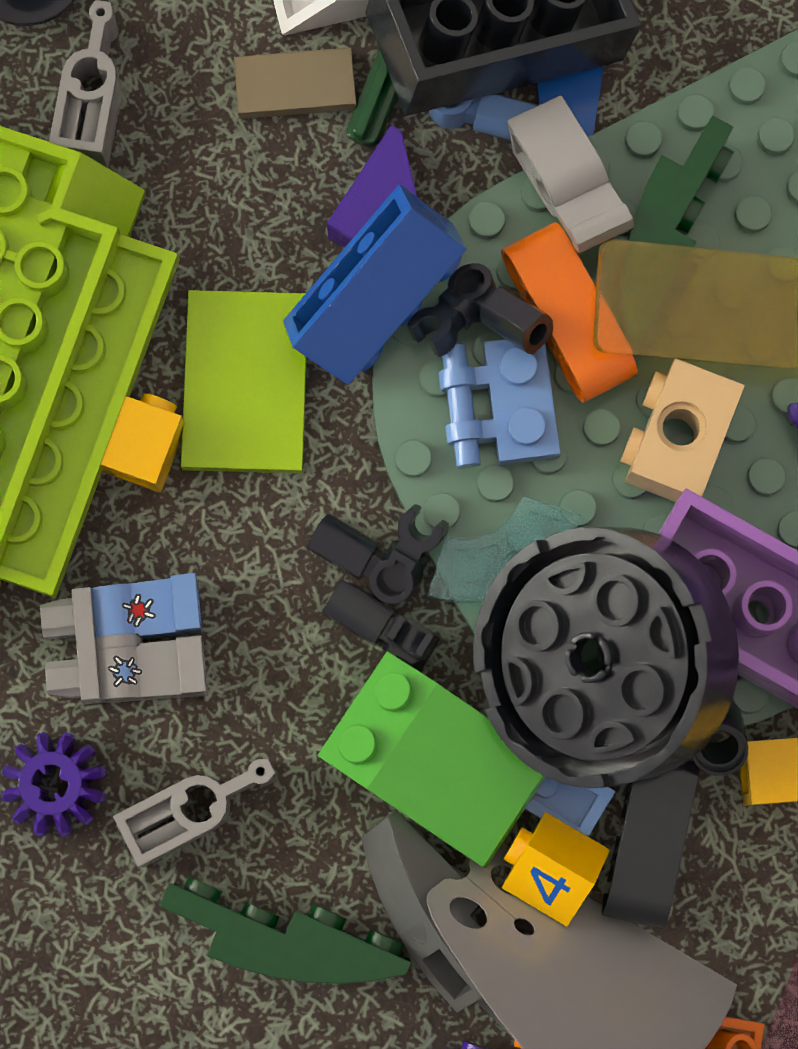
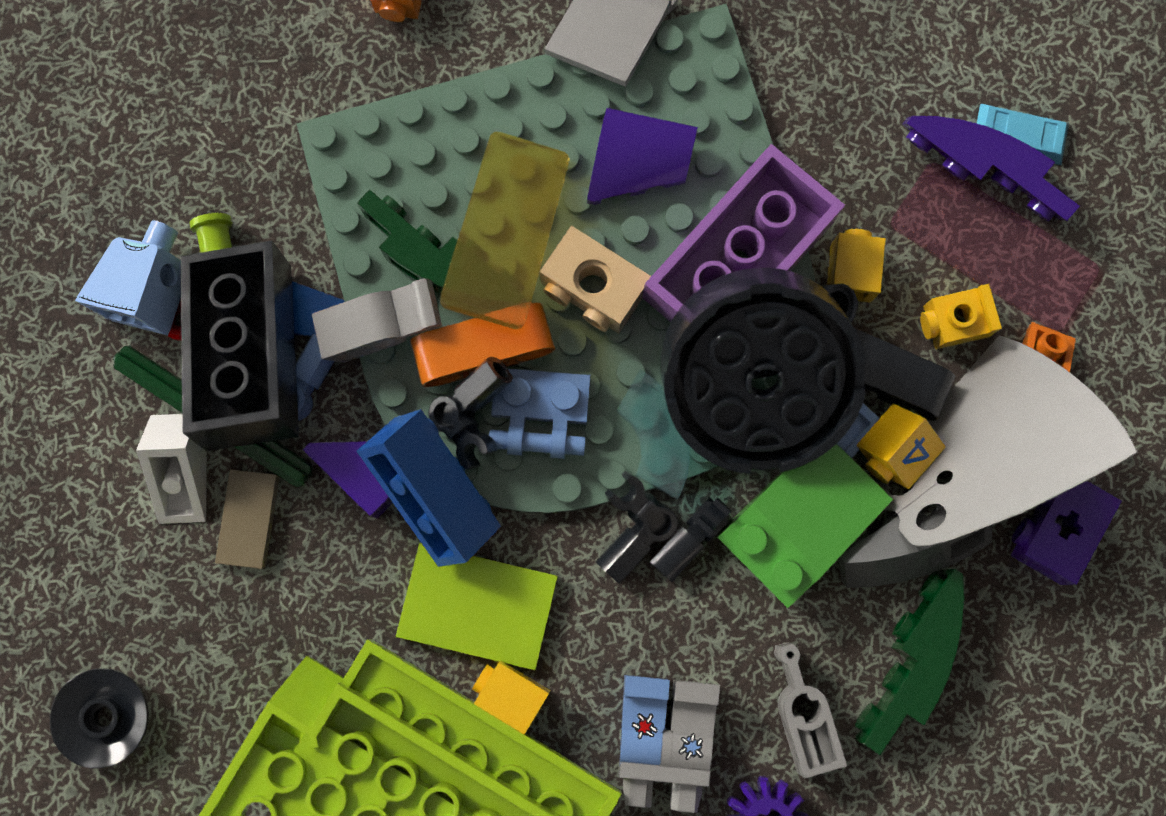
camera: 75 degrees left, 0 degrees up
(89, 118) = (238, 692): light grey piece -> none
(745, 948) = (979, 314): none -> yellow brick

